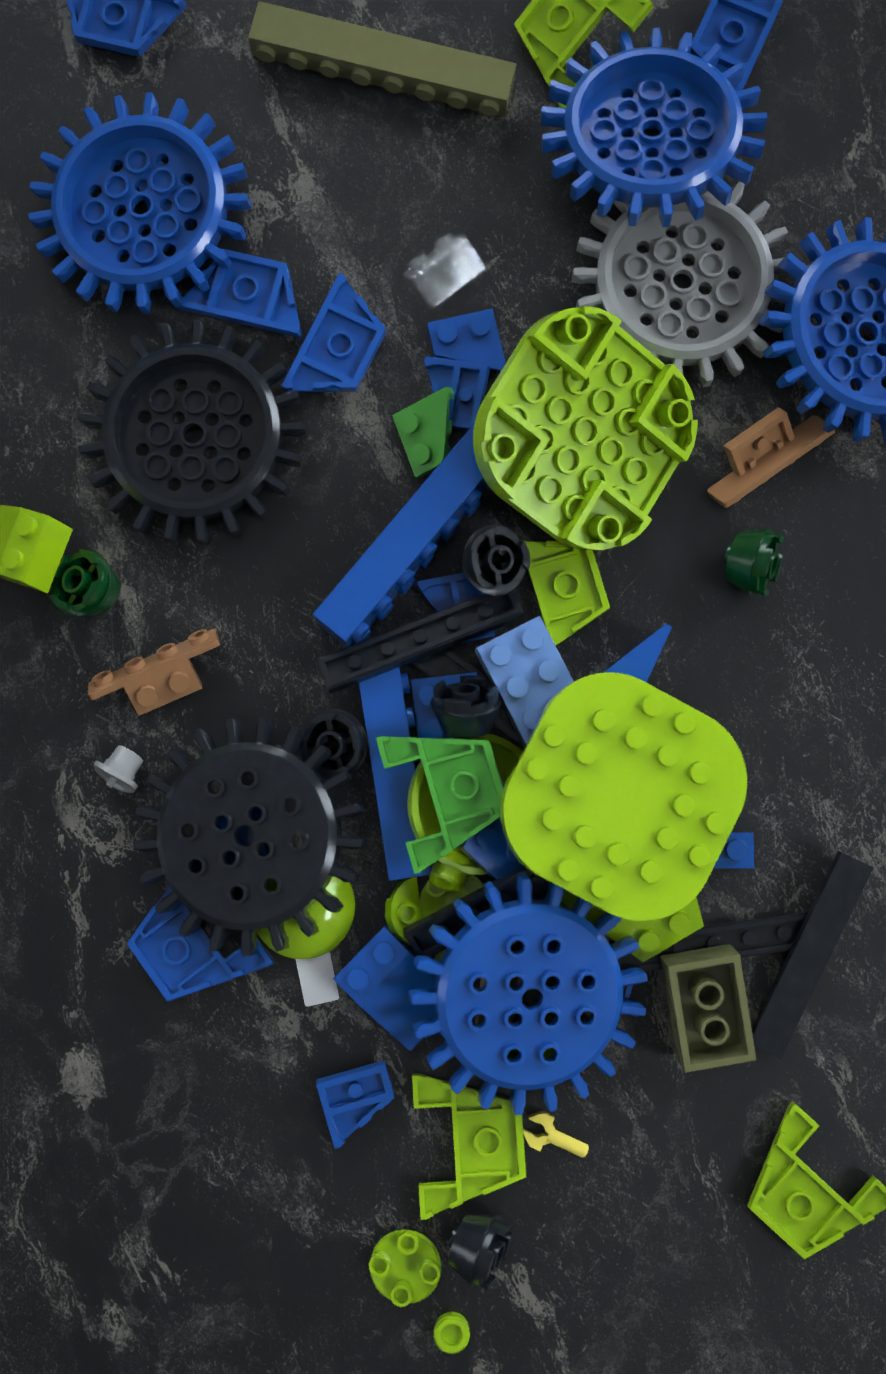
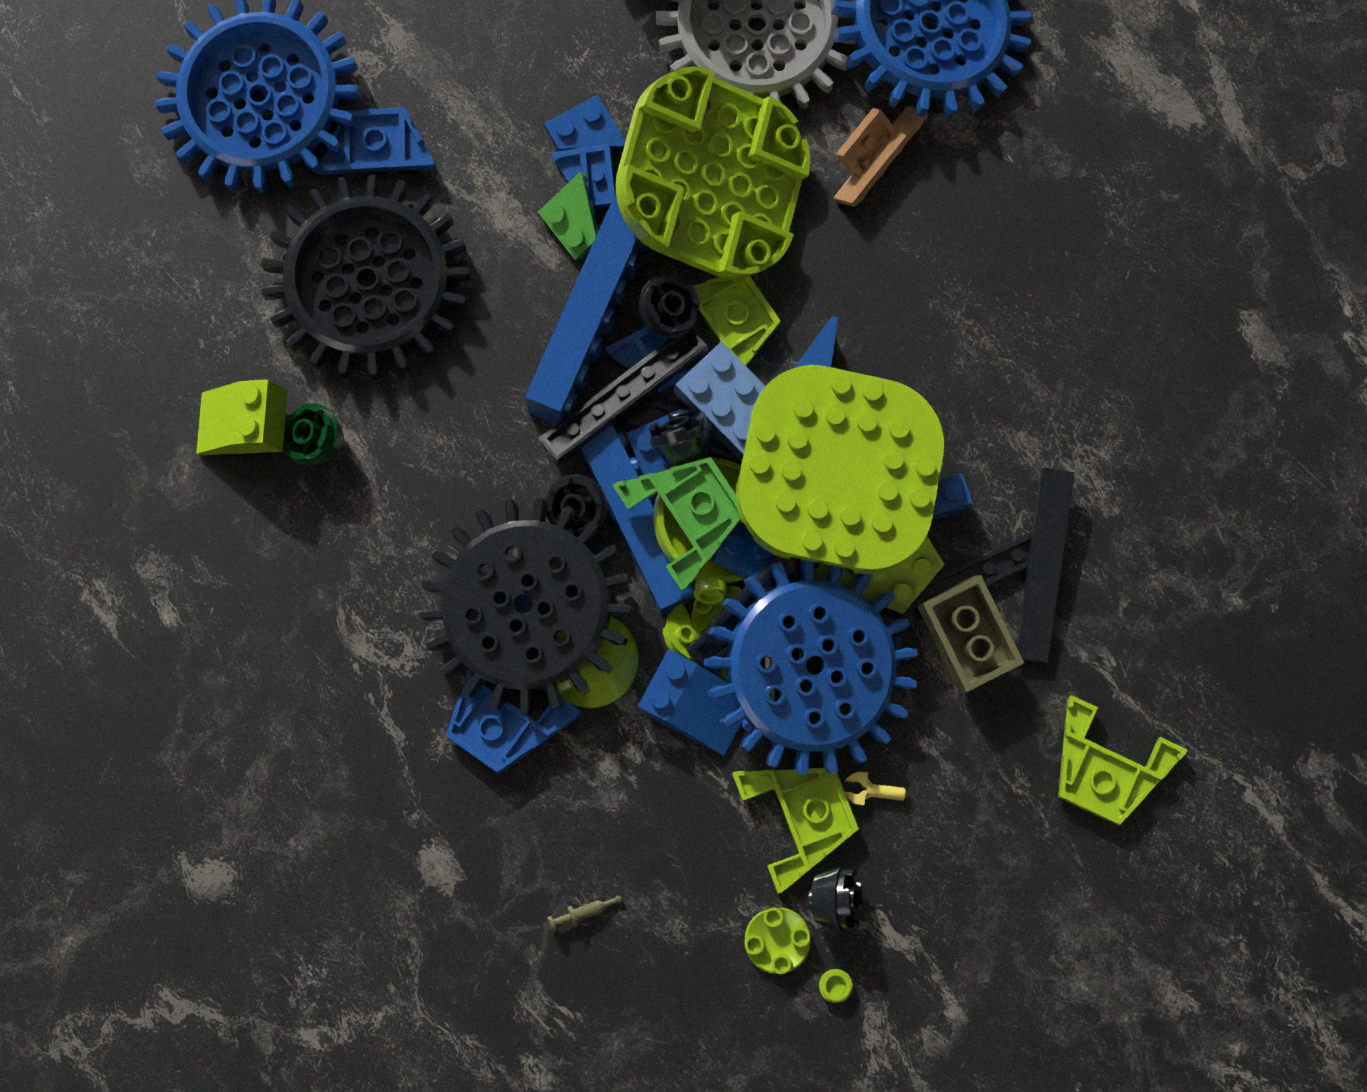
camera: 20 degrees left, 5 degrees down
(120, 769) = (392, 588): light grey piece -> none
(158, 677) = (402, 497): medium nougat bracket -> none
(212, 1172) = (581, 913): none -> olive piece
(317, 980) = (623, 720): white sticker -> none
(337, 344) = (470, 165): blue wing -> none
(353, 1098) = (687, 809): blue wing -> none
(444, 269) = (544, 72): clear bracket -> none
(753, 560) = (892, 244): dark green cone -> none

